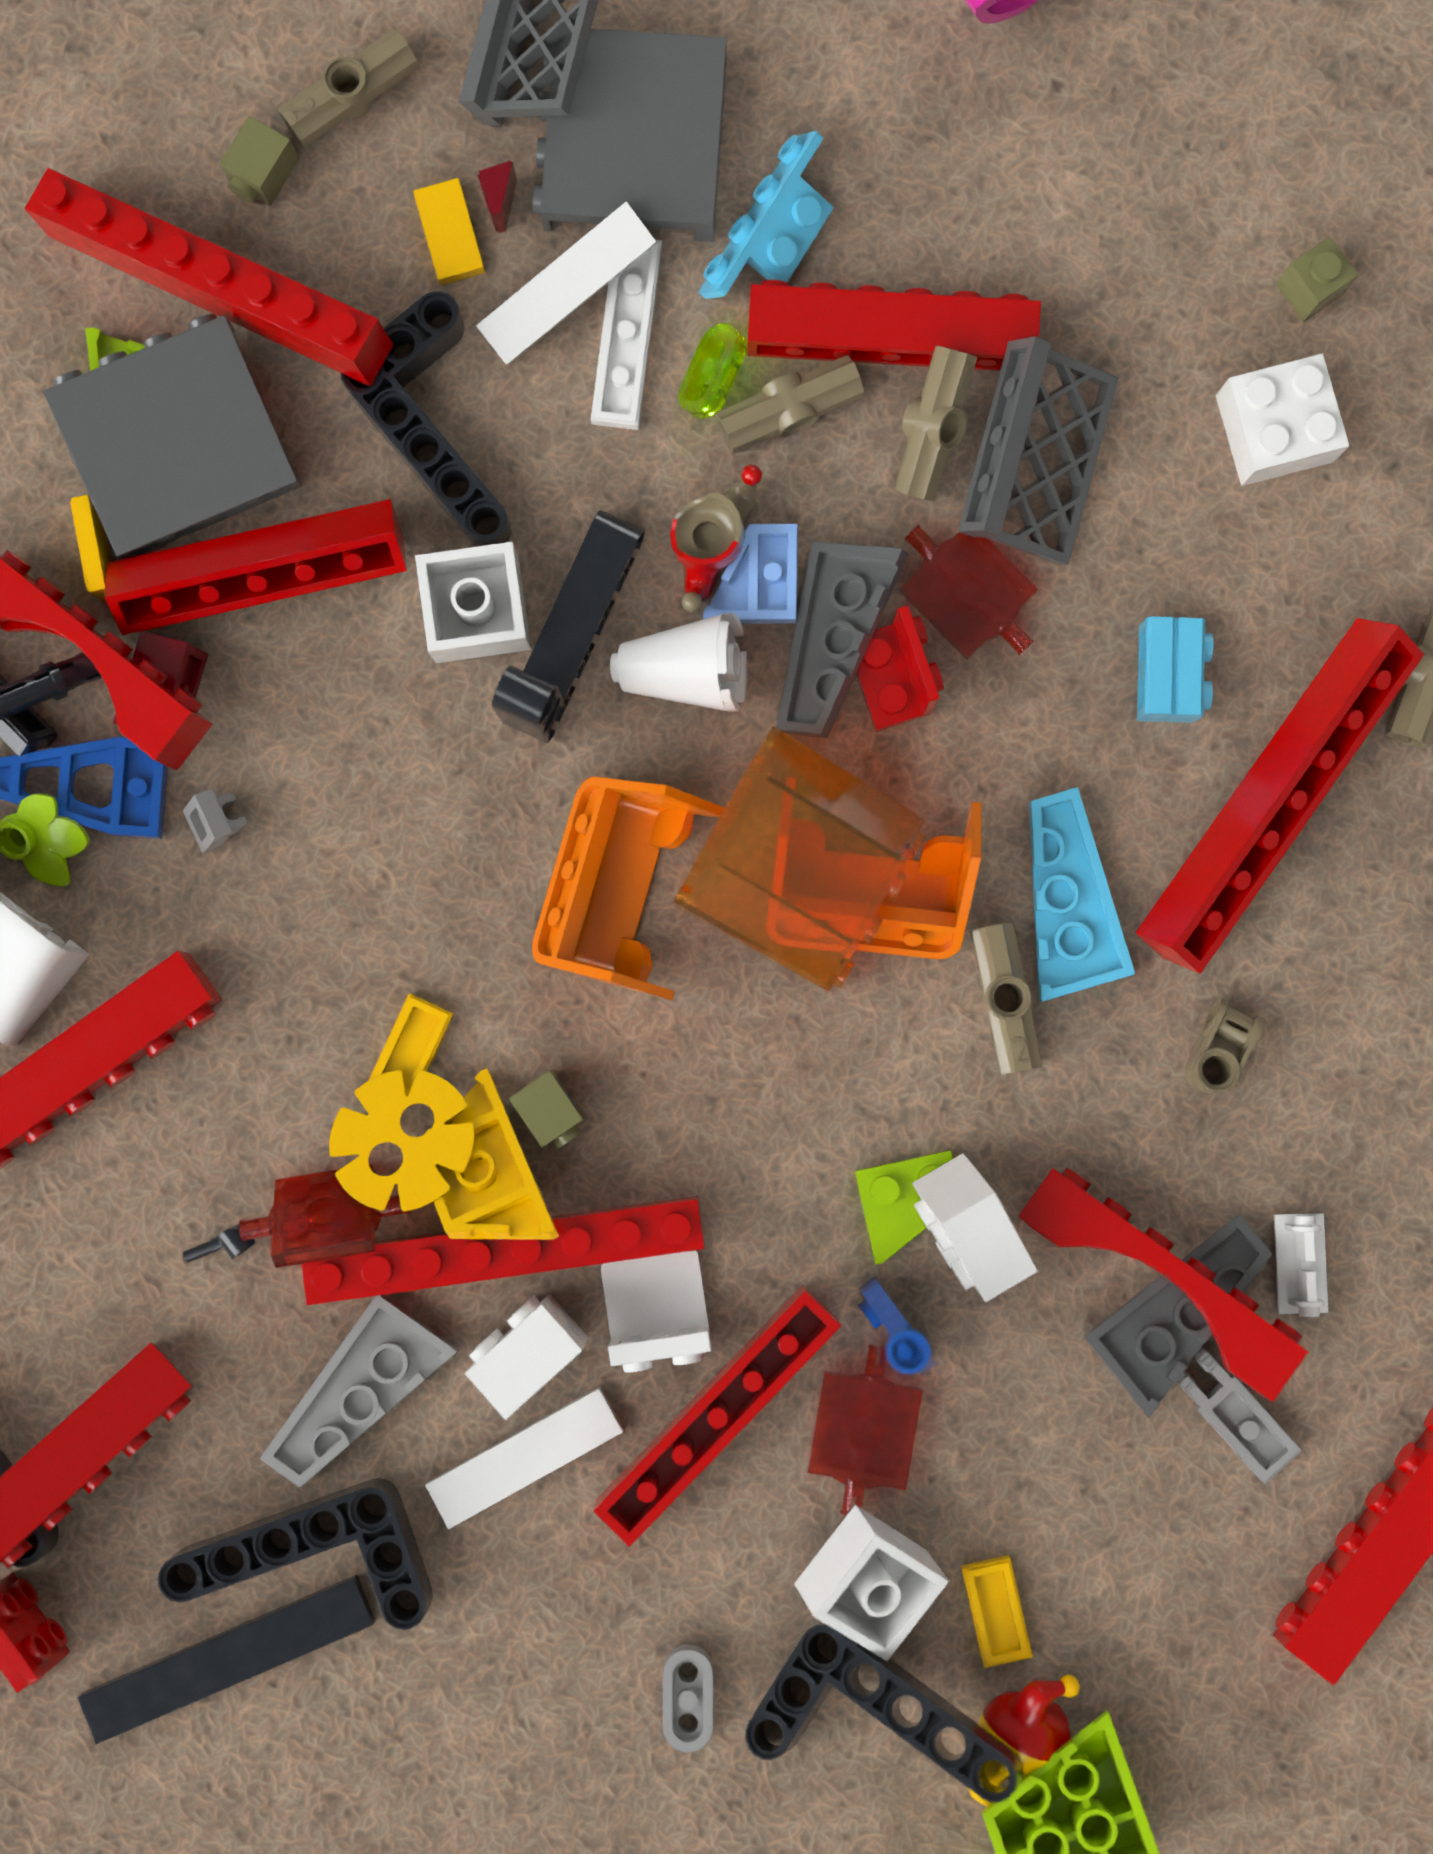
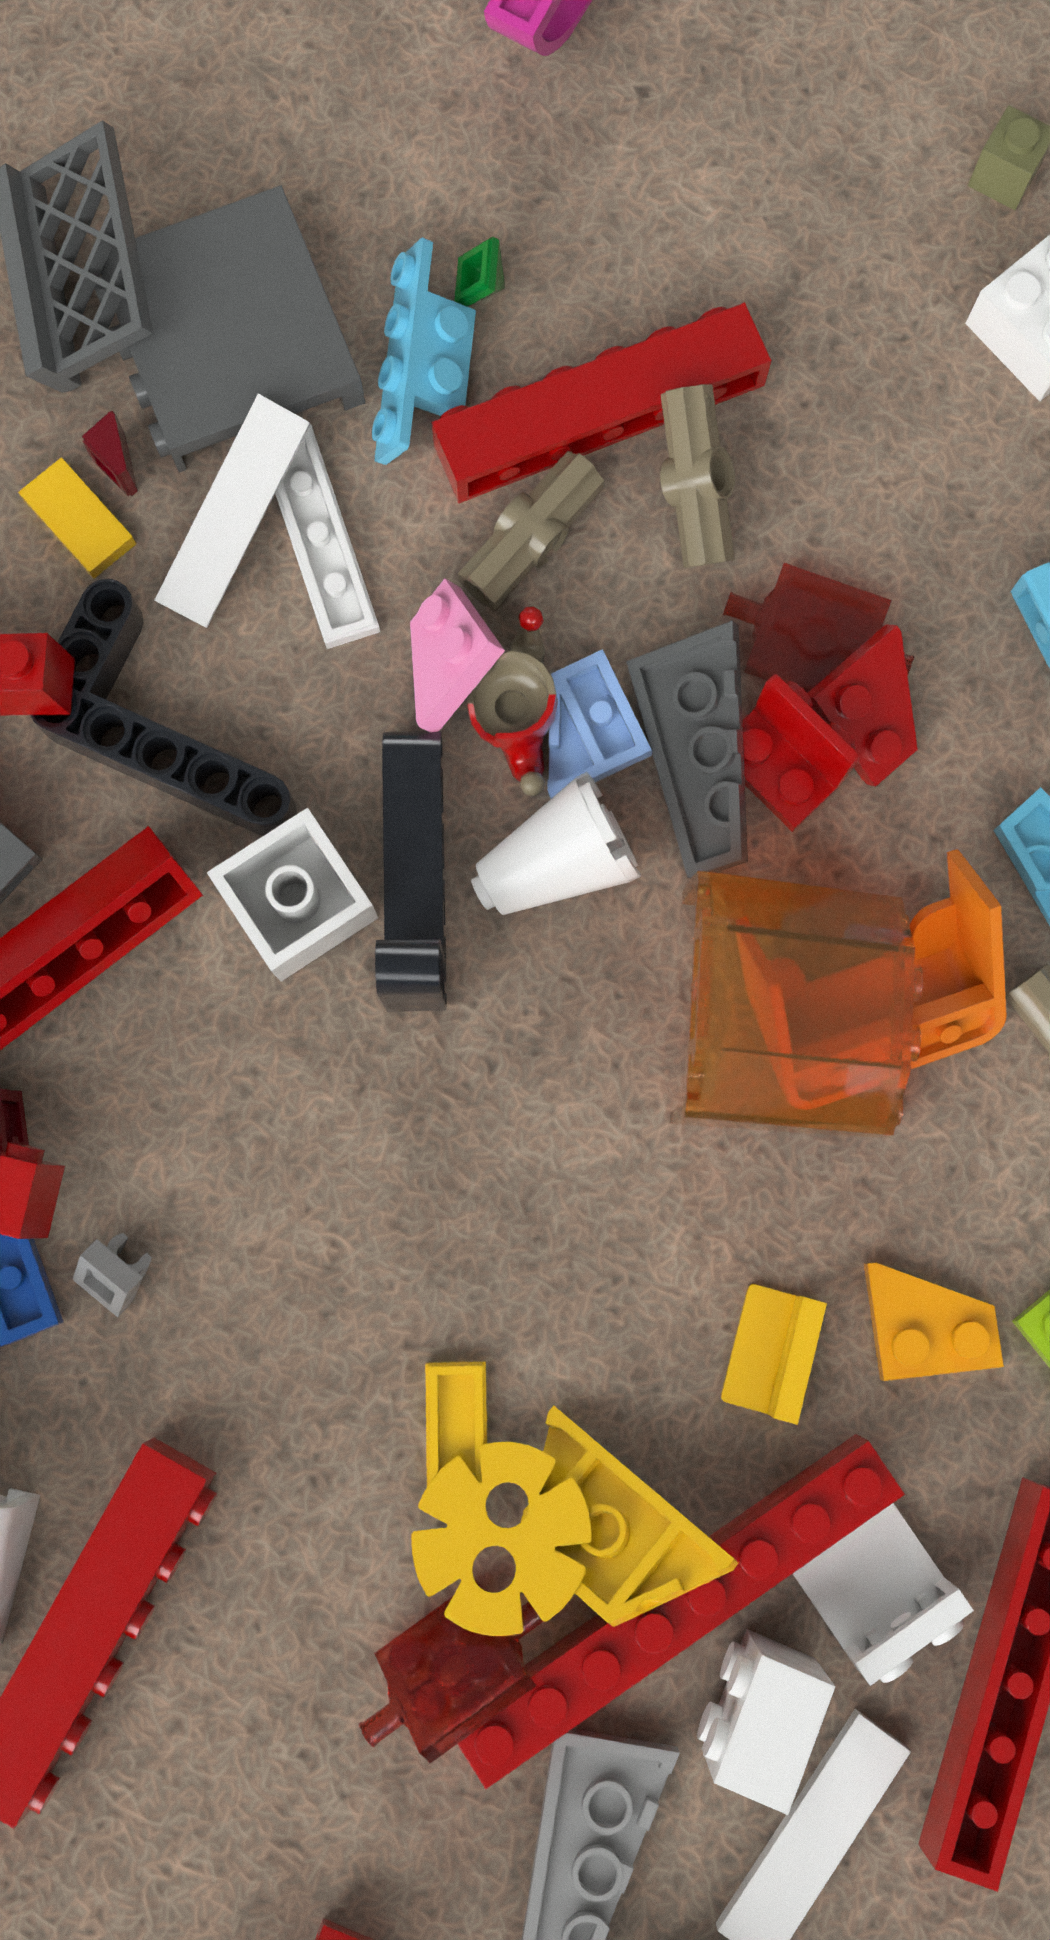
camera: 30 degrees left, 5 degrees down
(229, 1239) = (354, 1751): black hand -> none
(548, 1110) = (648, 1420): olive brick -> none
(606, 876) = (581, 1129): orange windscreen -> none
(664, 1106) = (773, 1352): none -> yellow panel
(678, 473) = (448, 654): none -> bright pink wing
(712, 371) = (431, 532): clear neon green plate -> none
(789, 1145) = (927, 1327): none -> light orange wing
(850, 179) = (479, 273): none -> green slope
(978, 663) = (872, 703): none -> red wing
(1009, 432) = (787, 458): dark grey fence -> none

